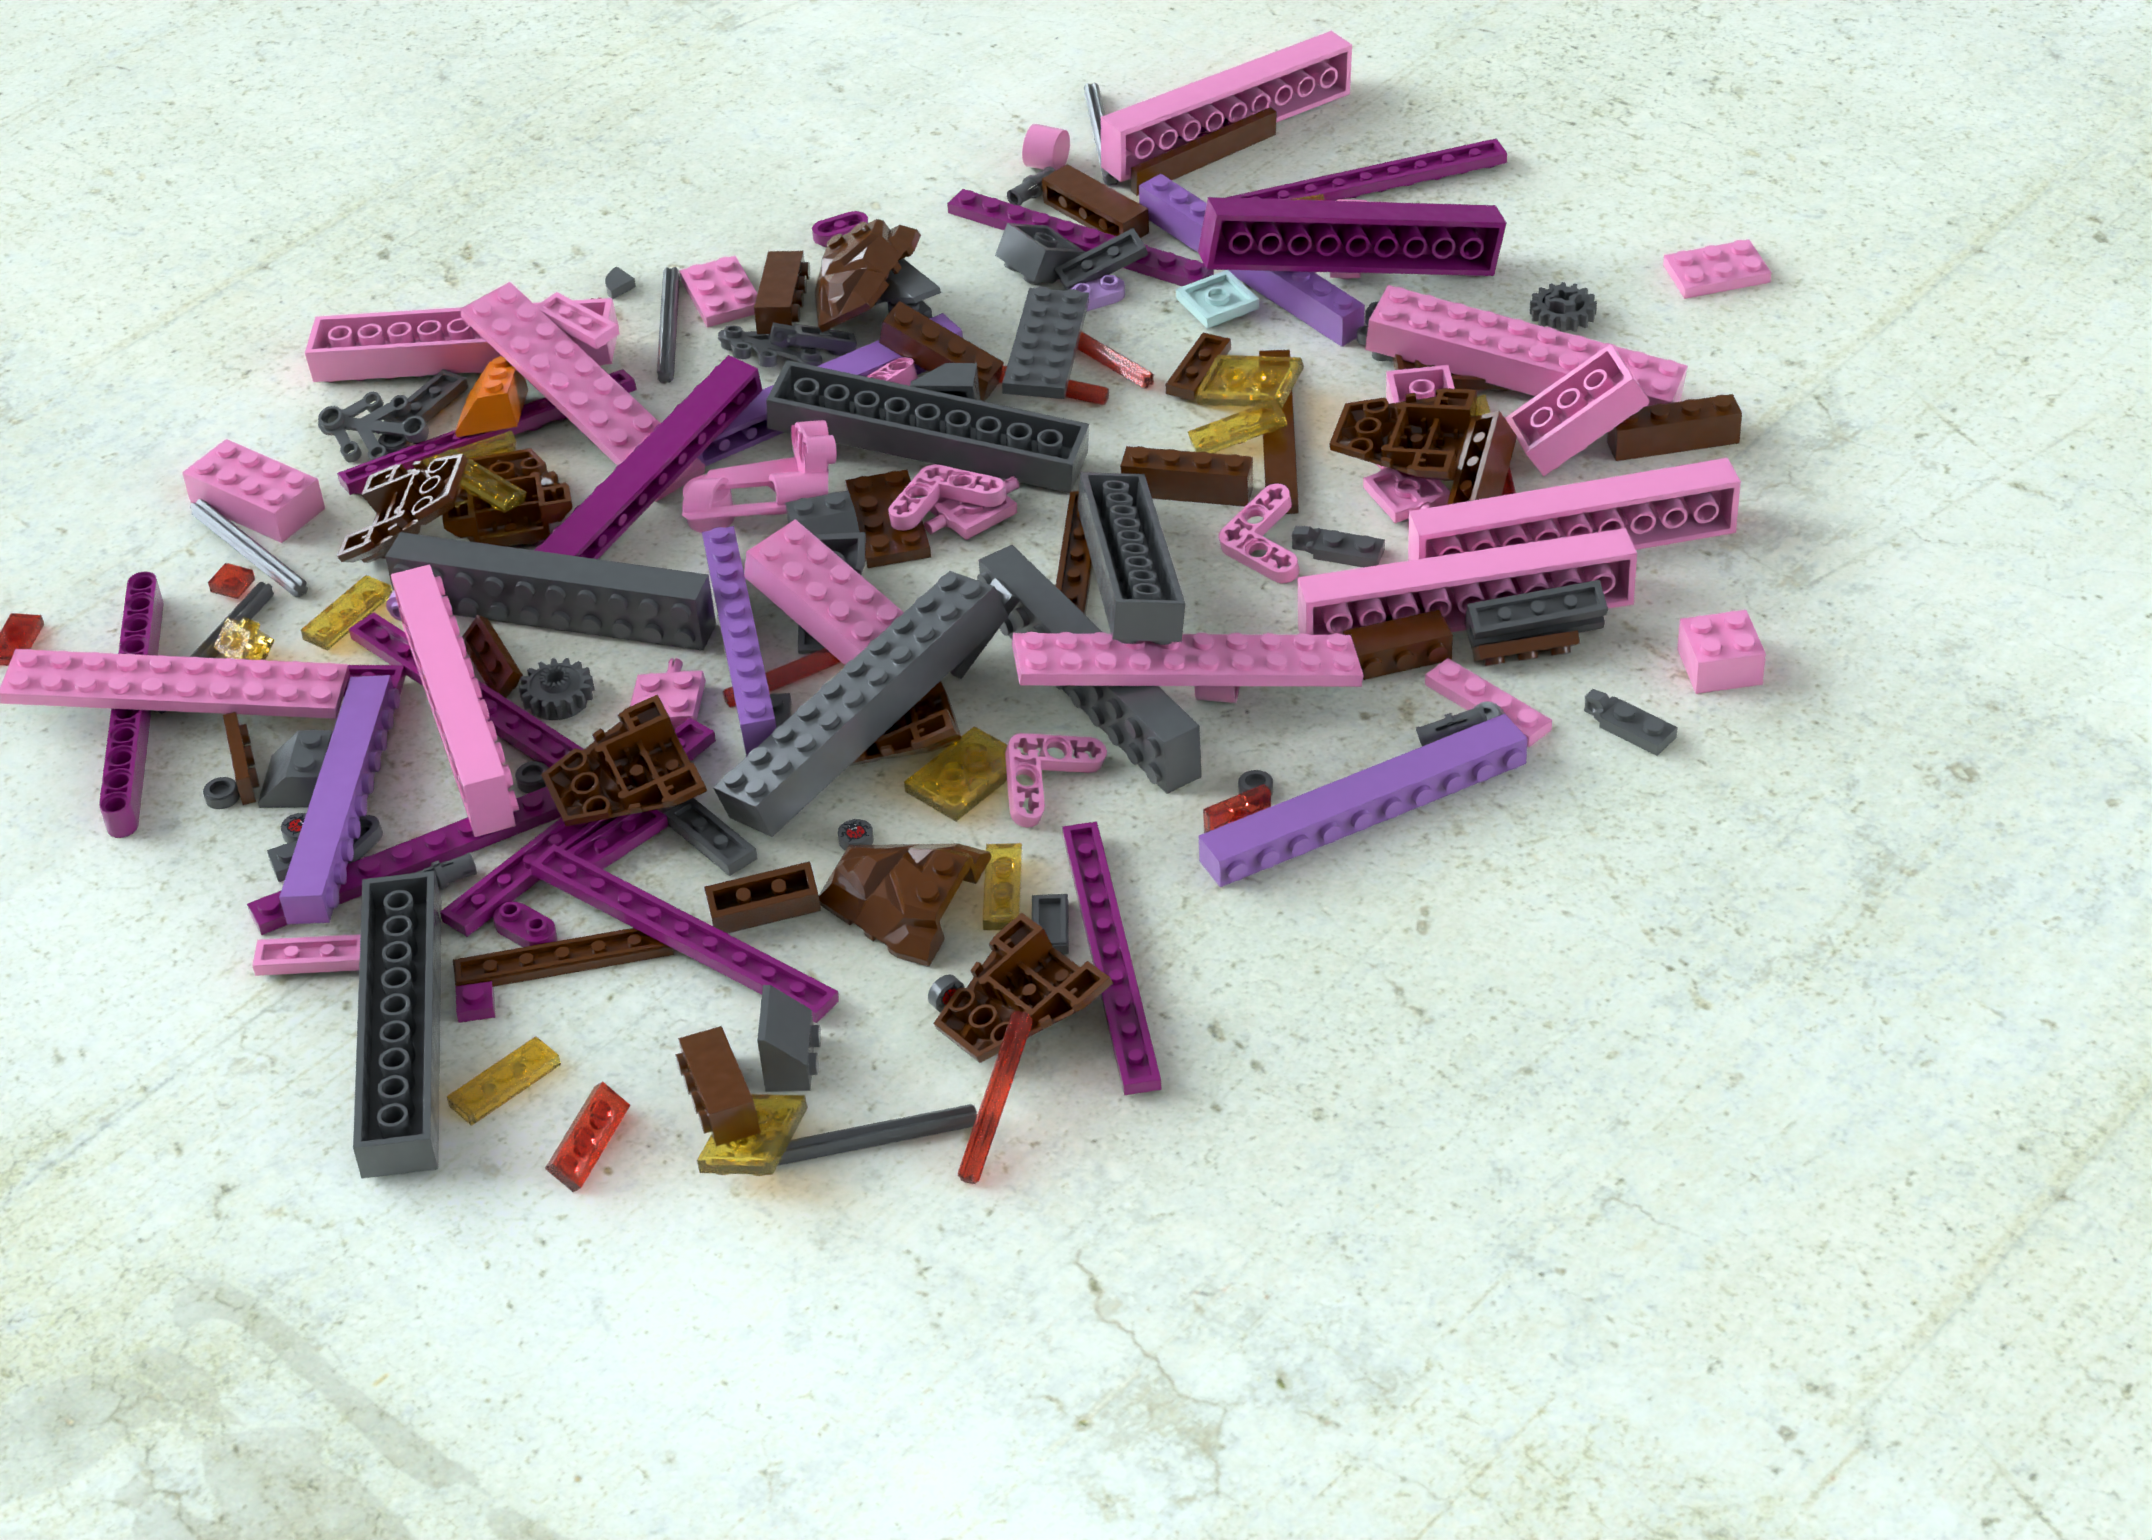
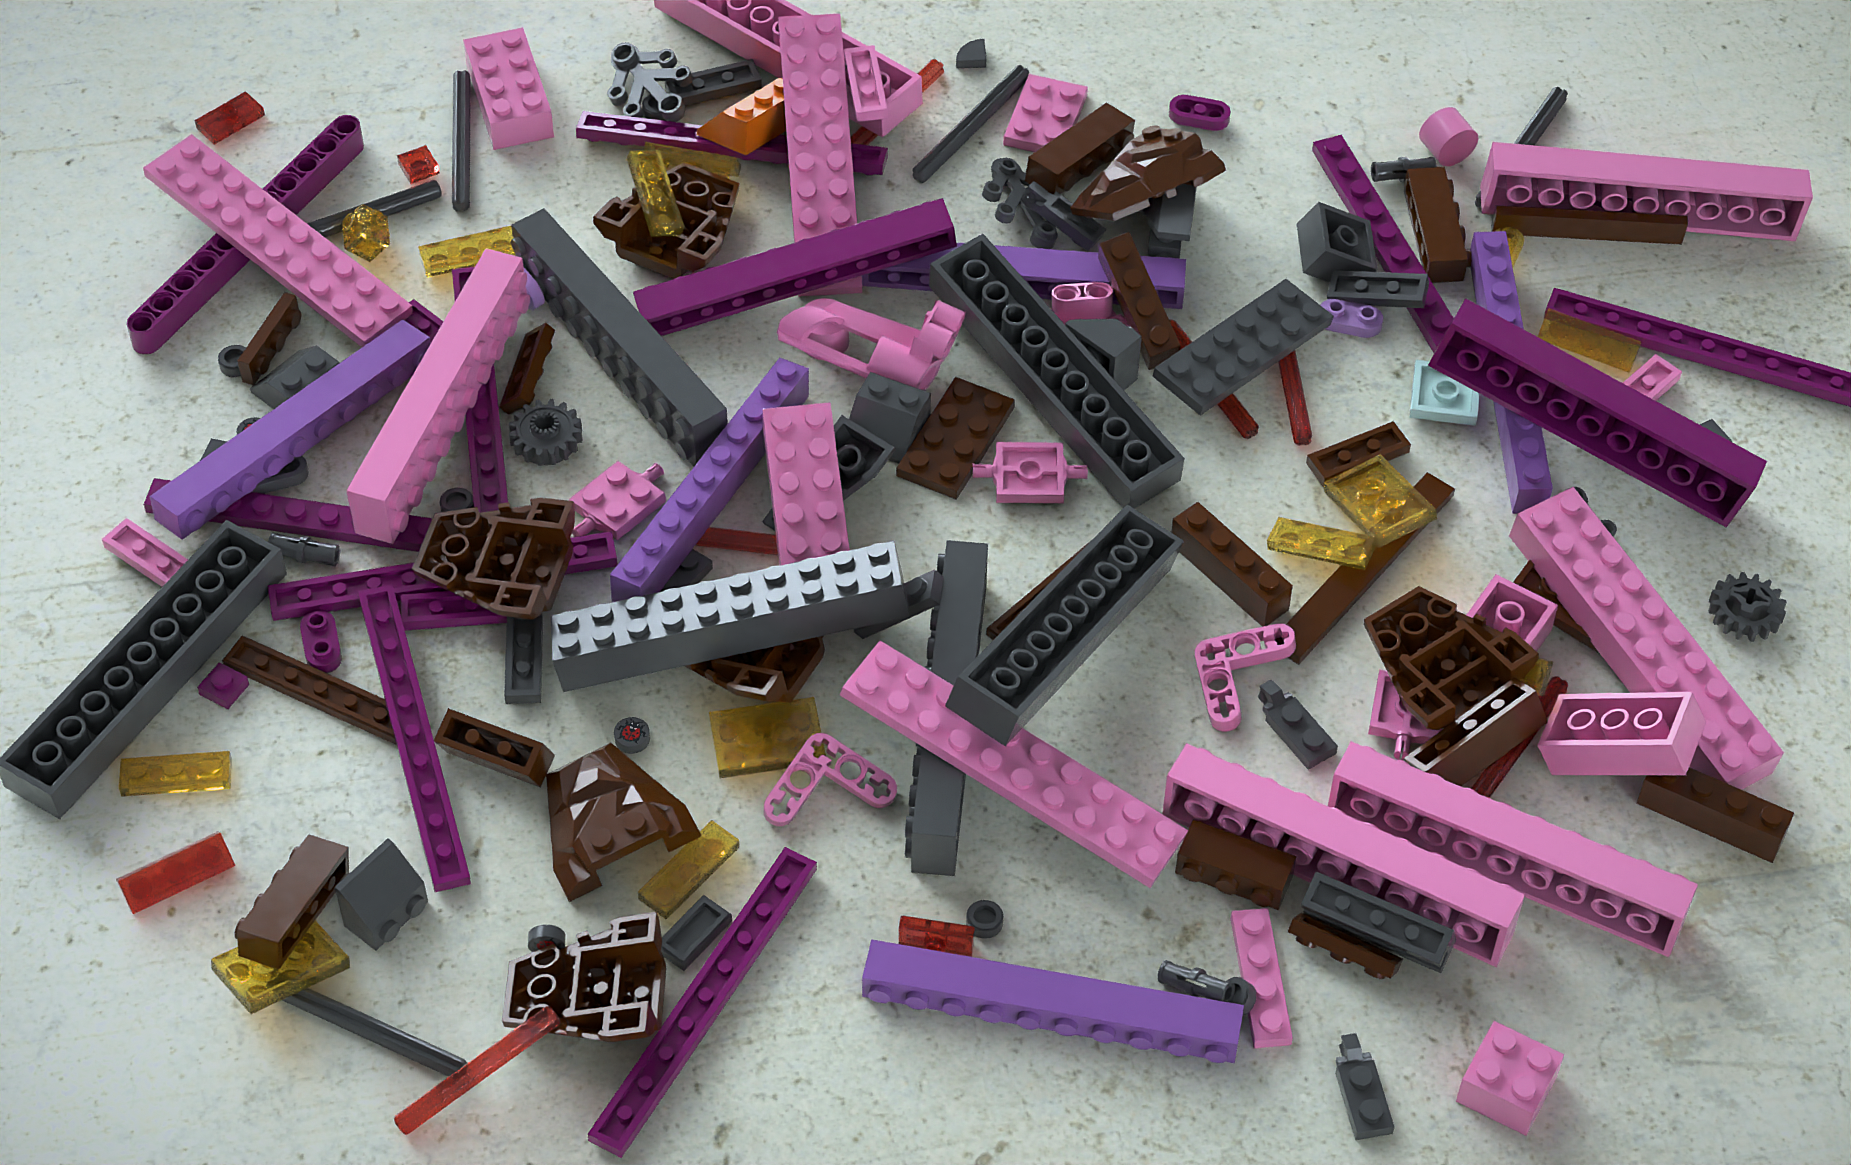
camera: 35 degrees right, 10 degrees up
(403, 504) = (599, 178): reddish brown wedge -> none
(943, 481) = (964, 445): bright pink beam -> none

